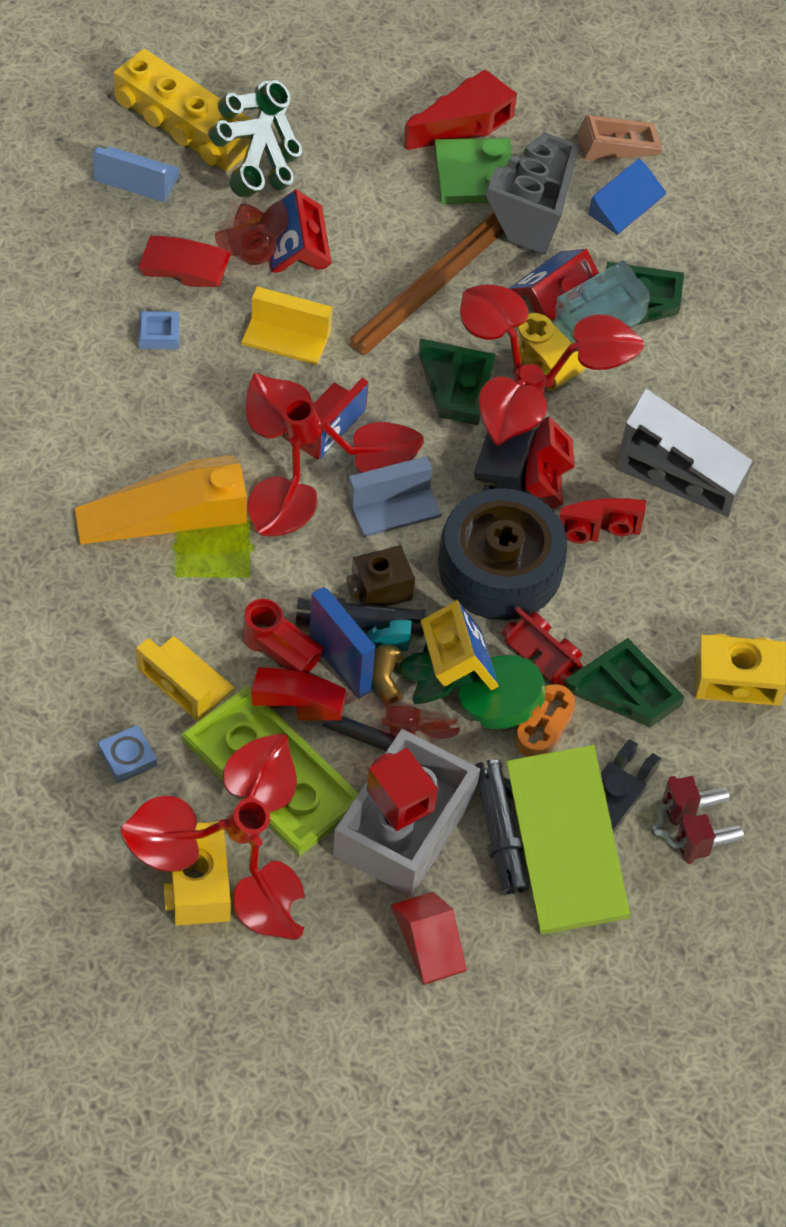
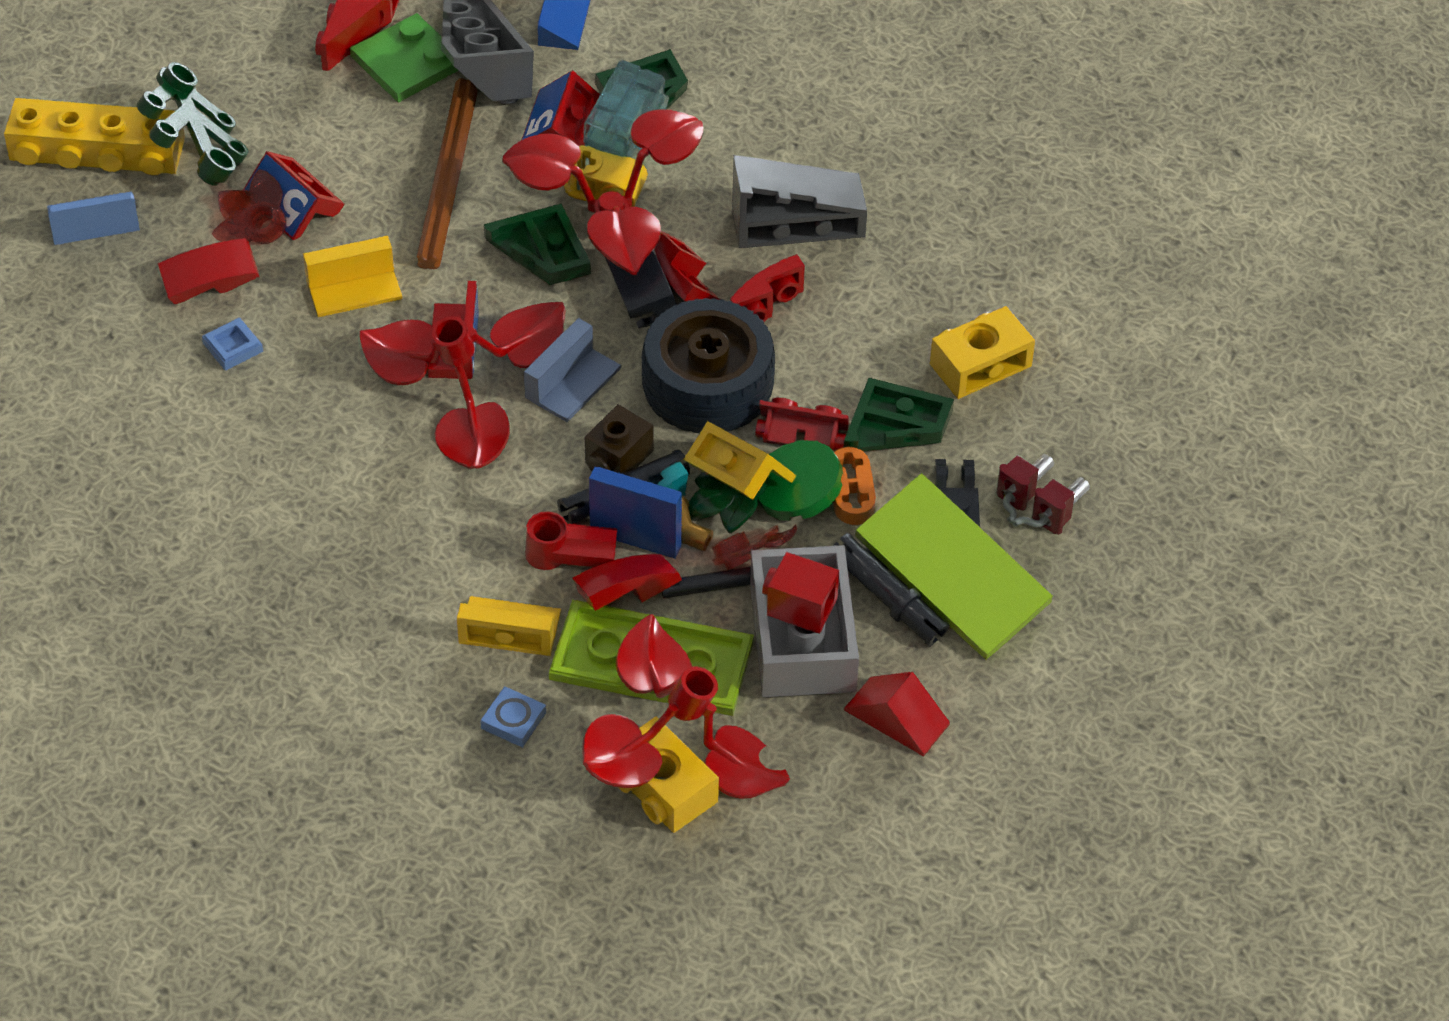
camera: 30 degrees left, 5 degrees down
(179, 499) = (371, 482): light orange wedge -> none
(214, 551) = (441, 504): clear neon green piece -> none

